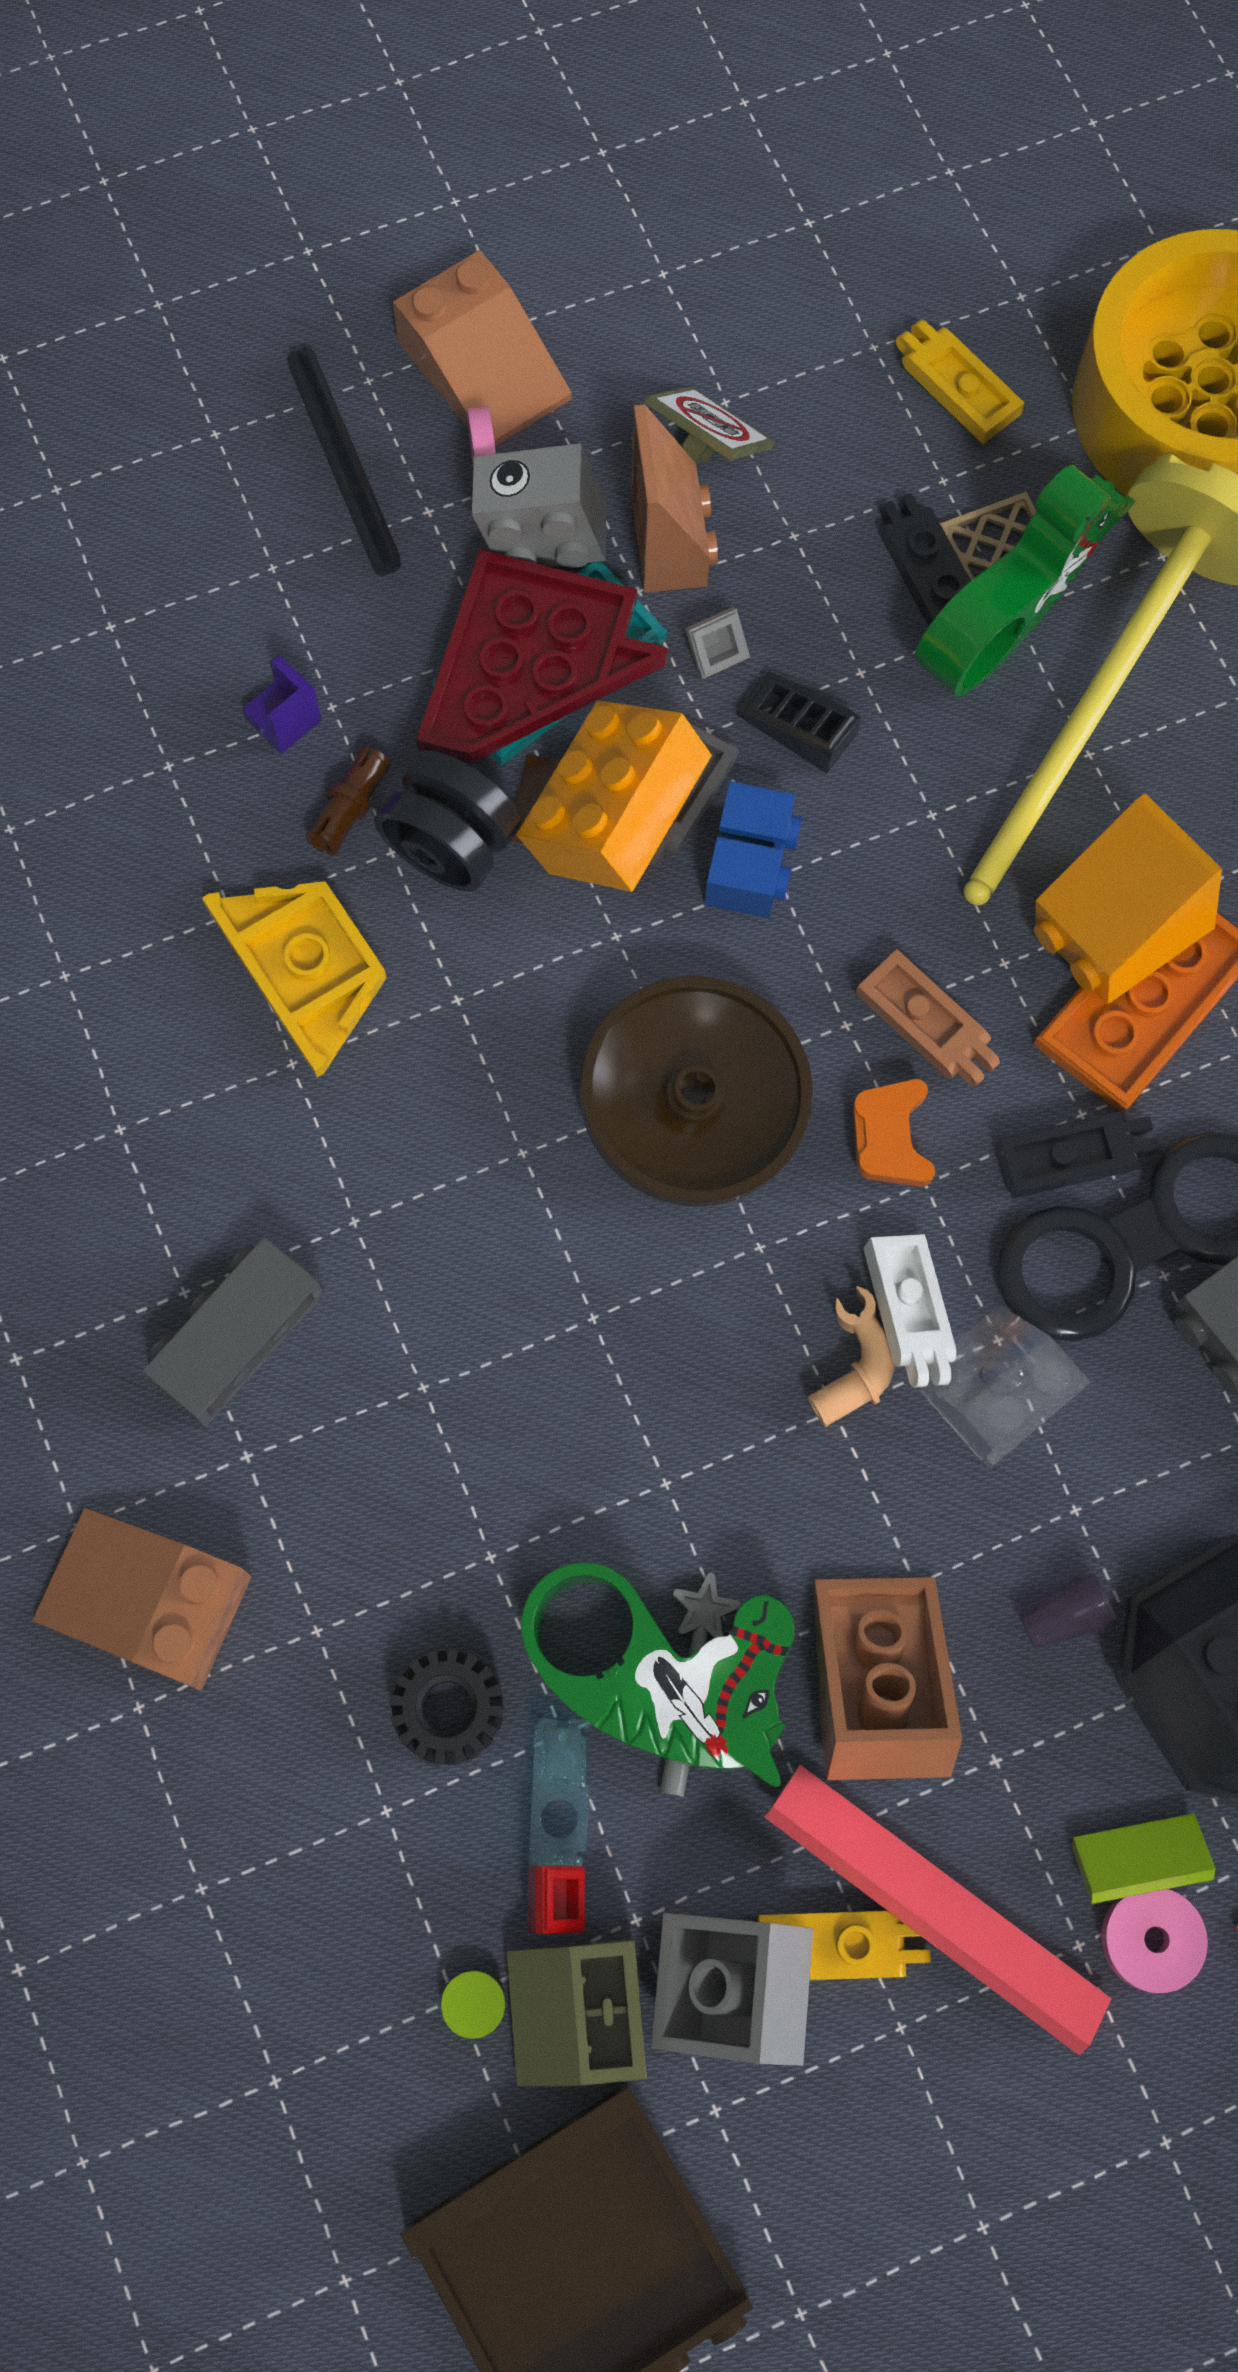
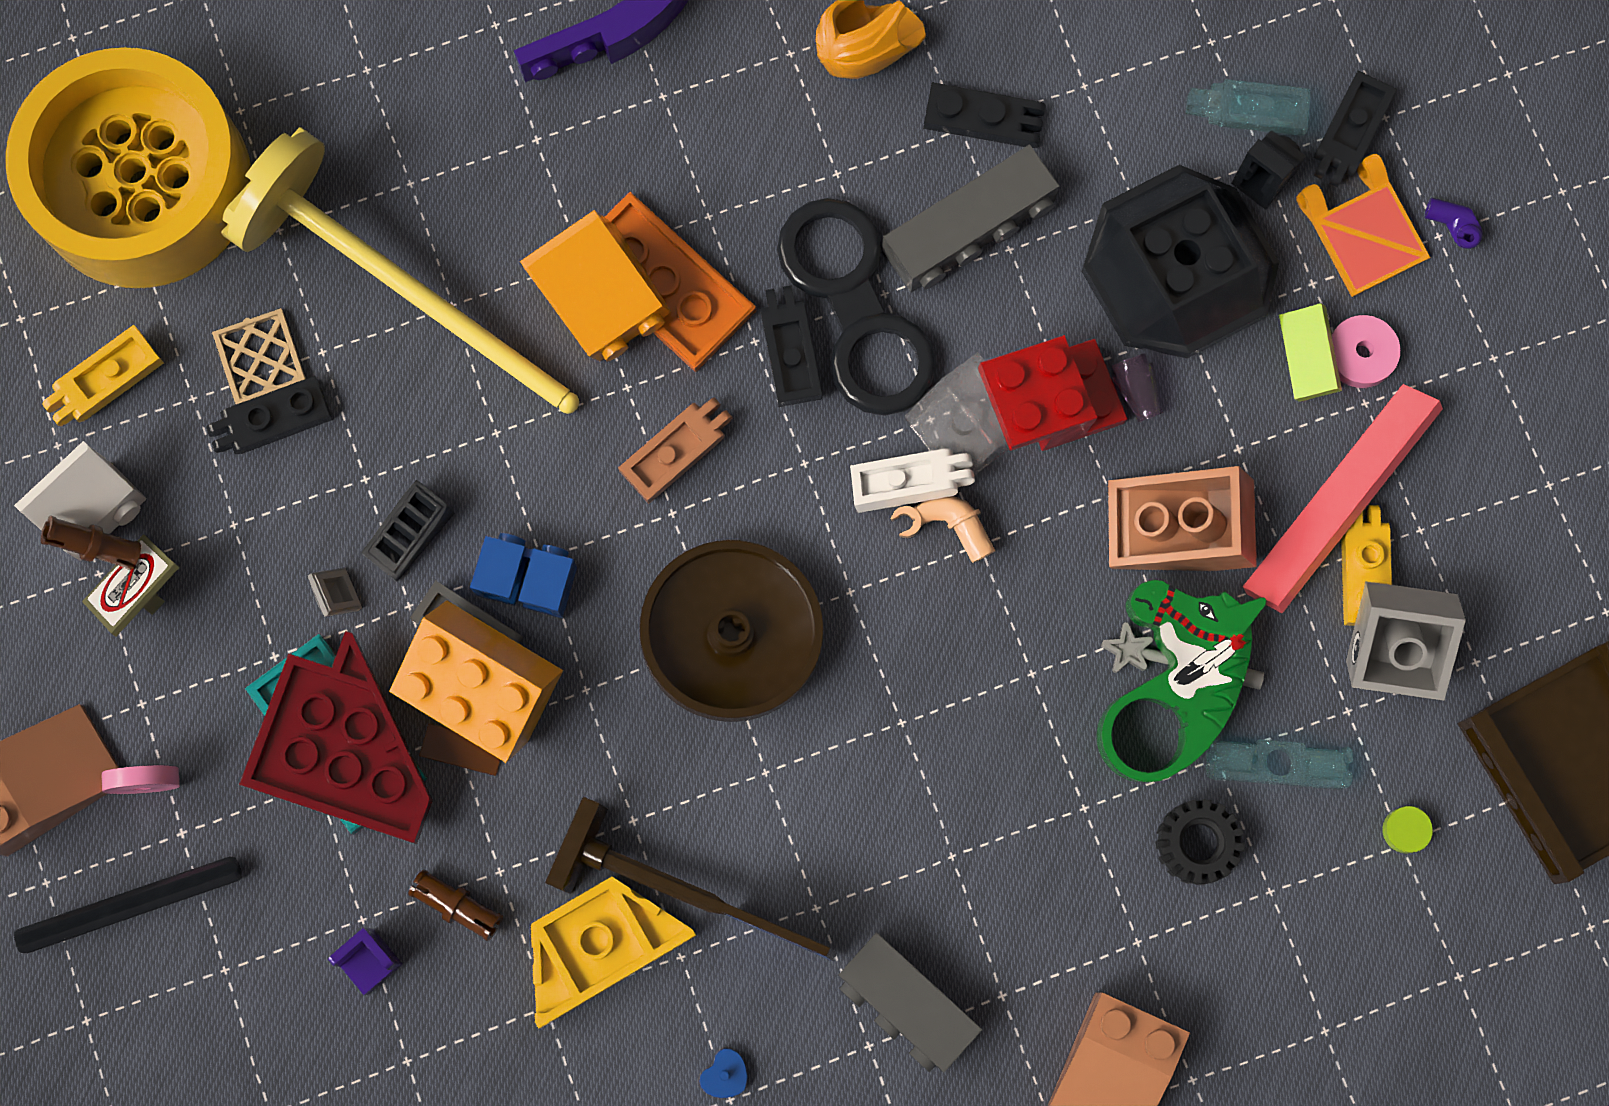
camera: 85 degrees left, 5 degrees up
(148, 1122) = (726, 1076): none -> blue piece
(417, 934) = (583, 848): none -> dark brown piece
(448, 821) = (490, 818): black wheel -> none
(540, 506) = (208, 730): light grey brick -> none
(556, 1899) = (1340, 766): red slope -> none
(576, 2014) = (1418, 752): olive slope -> none
(668, 510) = (217, 624): nougat slope -> none
(754, 369) = (90, 542): none -> reddish brown pin
(805, 361) = (84, 492): none -> white slope
(884, 1134) = (769, 489): orange piece -> none
(1013, 594) = (317, 339): green animal -> none
(1044, 1487) = (1052, 393): none -> red bracket

